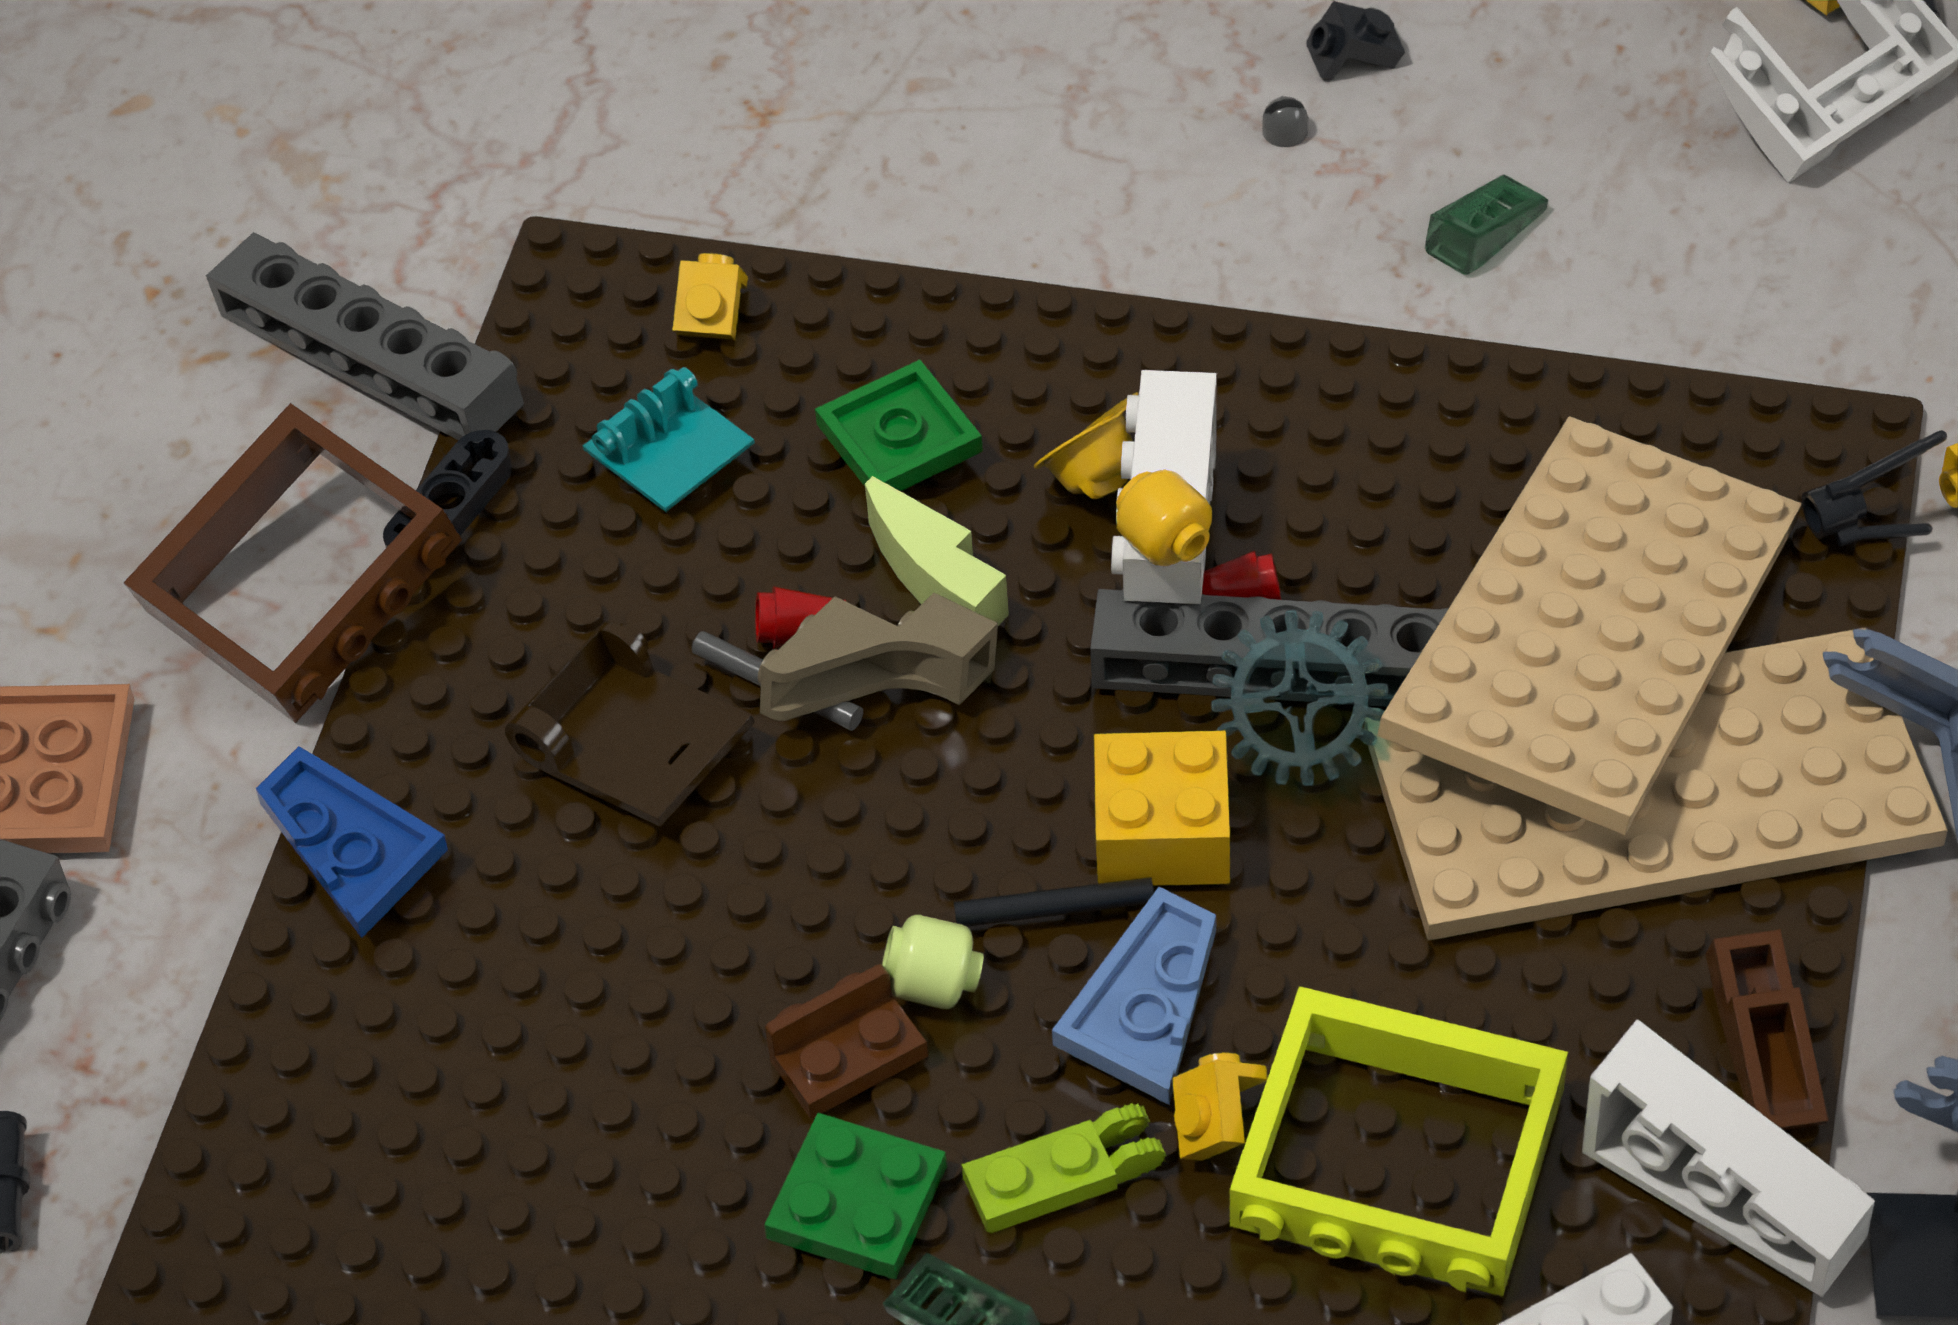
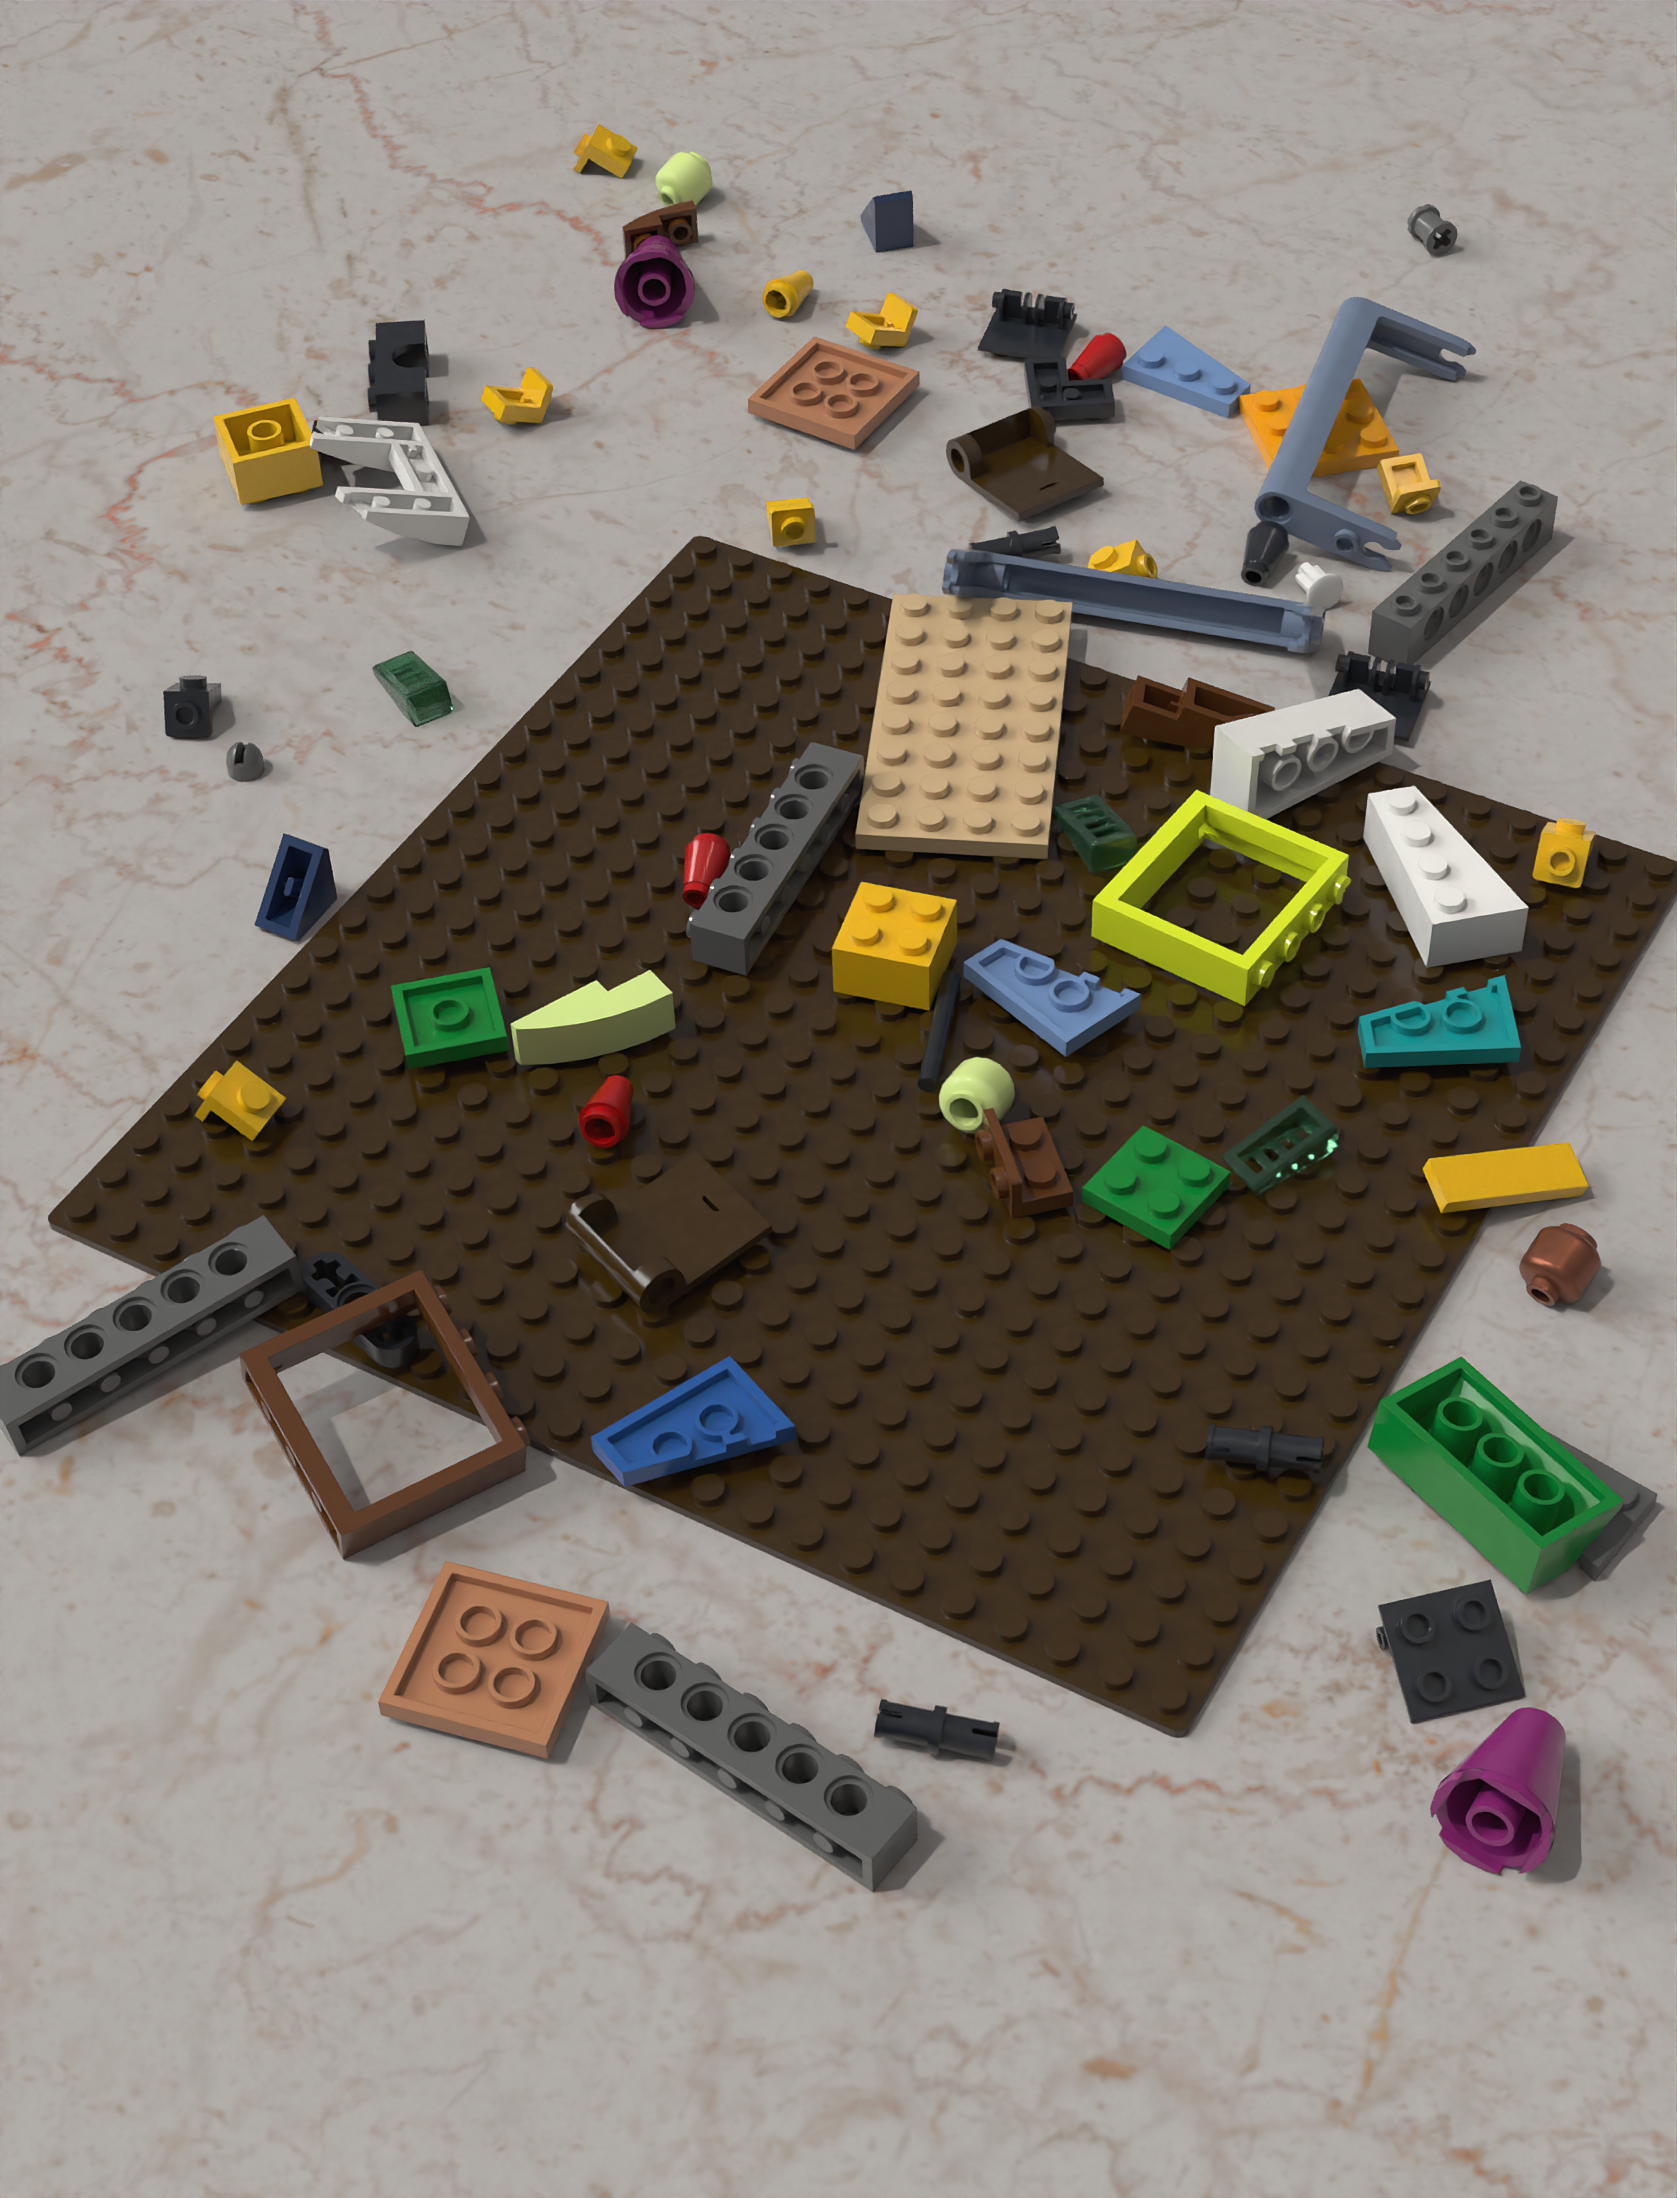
camera: 75 degrees left, 5 degrees down
(667, 440) = (376, 1158): teal hinge -> none
(747, 666) = (656, 1141): dark grey bar -> none
(855, 653) = (682, 1040): dark tan arch -> none
(1061, 1168) = (1174, 1076): lime hinge -> none
(1070, 237) = (297, 889): none -> dark blue slope
(1092, 458) = (534, 905): yellow piece -> none
(1163, 517) = (703, 826): yellow head -> none
(1174, 433) = (625, 858): white wedge -> none
(1210, 1104) = (1164, 974): yellow bracket -> none
(1244, 703) = (843, 840): clear light blue gear -> none
(1438, 976) = (1096, 833): none -> clear green slope
(1591, 624) = (846, 694): tan plate -> none
(1840, 504) = (786, 578): black plant -> none

